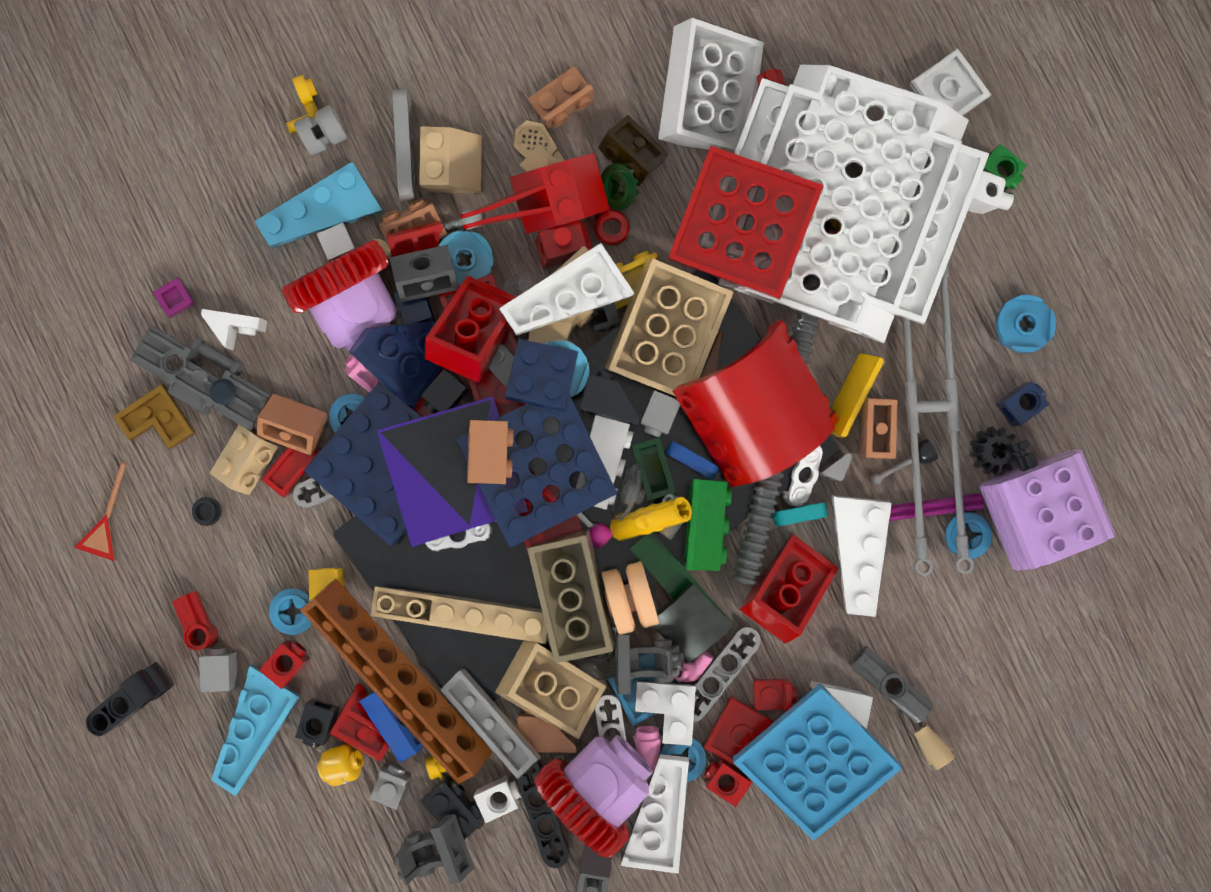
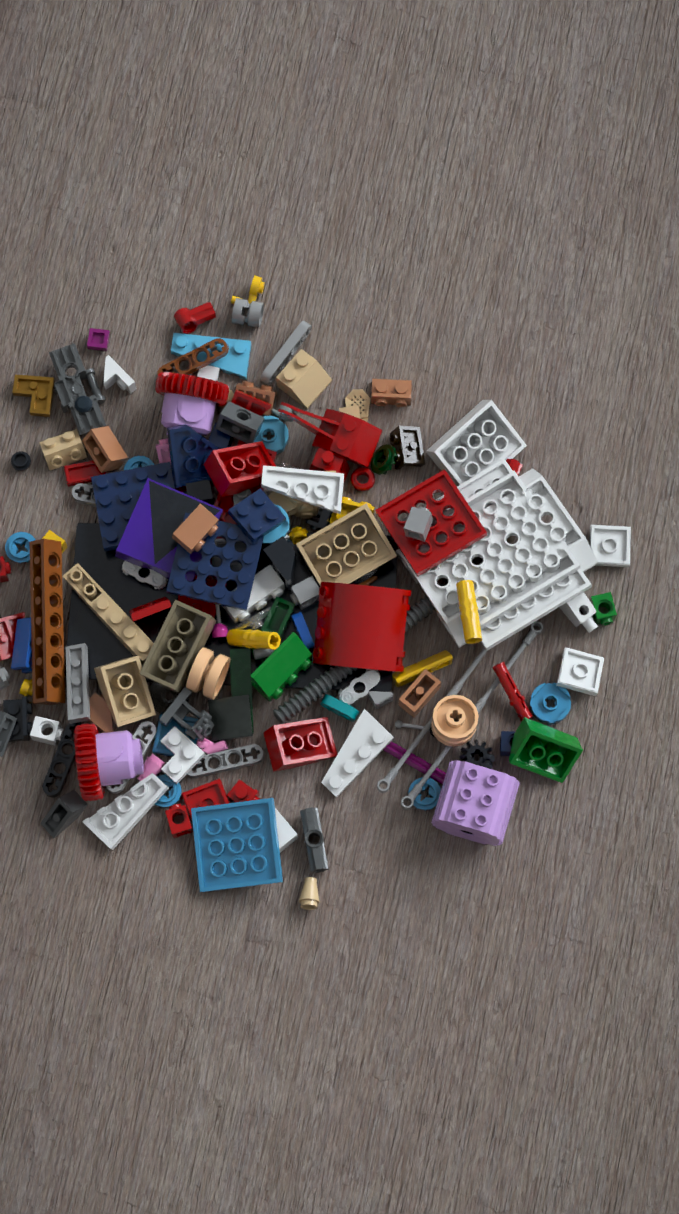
camera: 35 degrees right, 15 degrees down
(260, 189) = (190, 319): none -> red piece
(301, 236) = (191, 357): none -> dark orange beam
(502, 575) = (150, 608): none -> red tile
(596, 352) = (297, 534): none -> yellow plate
(737, 236) = (418, 523): none -> light grey brick
(878, 297) = (469, 611): none -> yellow axle
(967, 433) = (450, 709): none -> light nougat wheel
(987, 350) = (512, 691): none -> red pin
(1031, 262) = (580, 671): none -> white plate
(1069, 385) = (544, 750): none -> green slope

